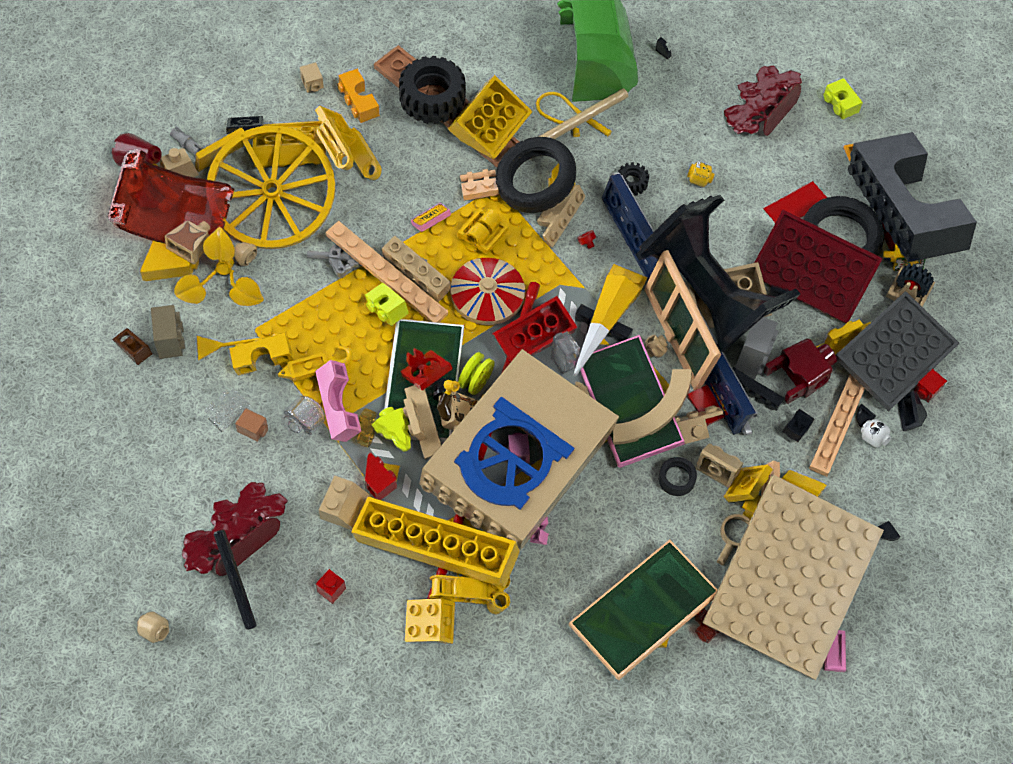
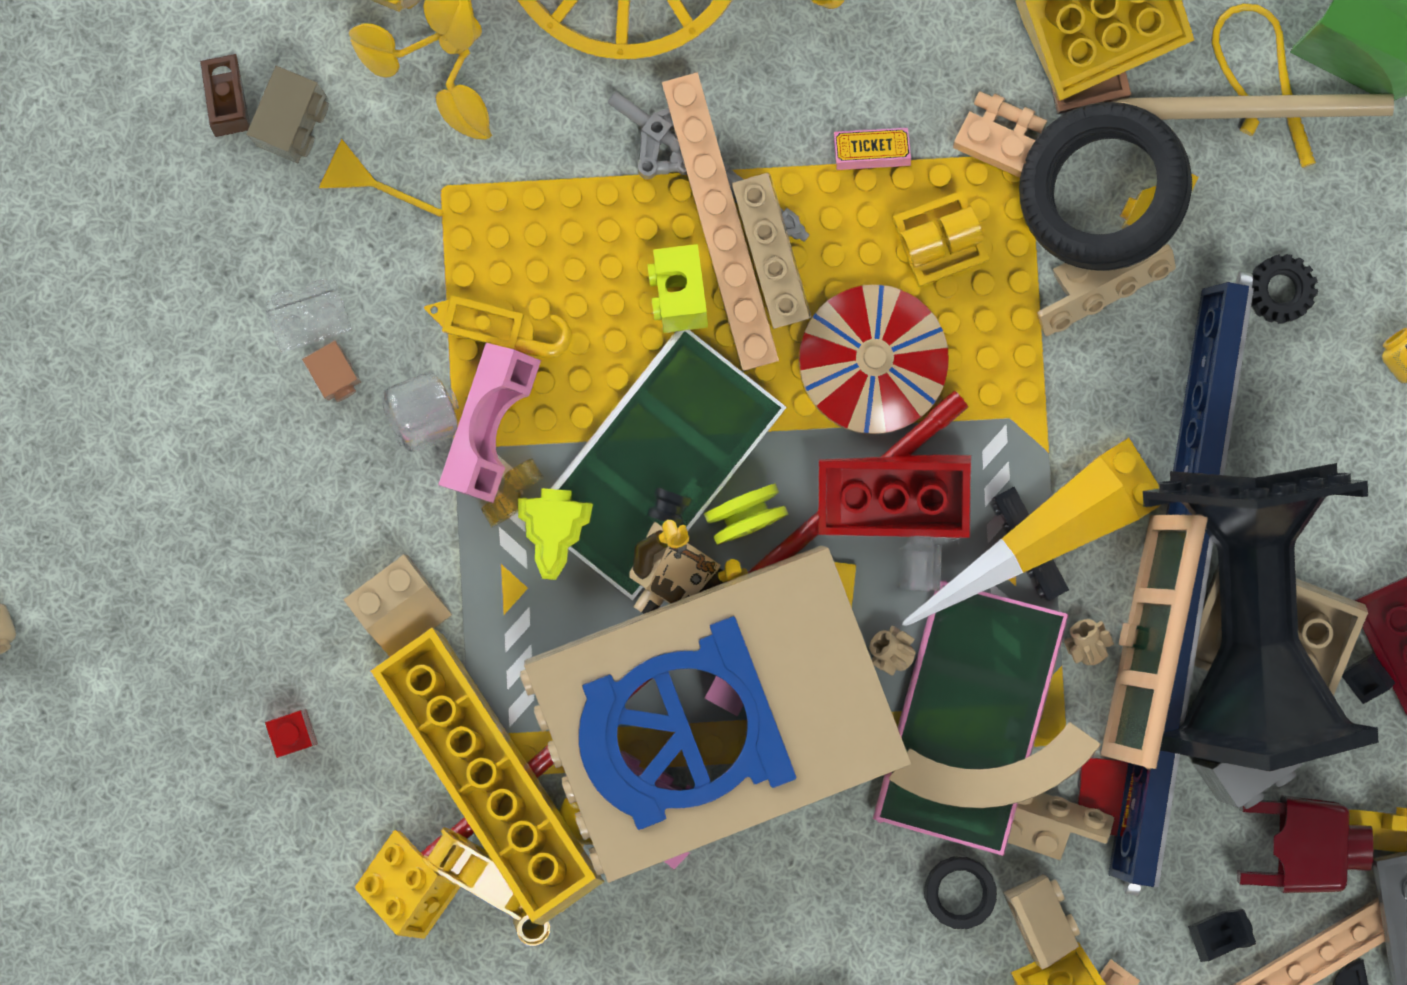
camera: 35 degrees right, 25 degrees up
(235, 579) = (146, 636): black axle -> none
(237, 522) = (205, 528): dark red plant -> none
(245, 253) = (507, 29): tan cone -> none
(245, 355) = (391, 238): yellow arch -> none
(378, 479) = (472, 595): red slope -> none
(421, 420) = (603, 542): tan bracket -> none
(431, 372) = (671, 481): red piece -> none
(587, 238) = (1116, 360): red tile -> none
(760, 392) = (1202, 823): black piece -> none

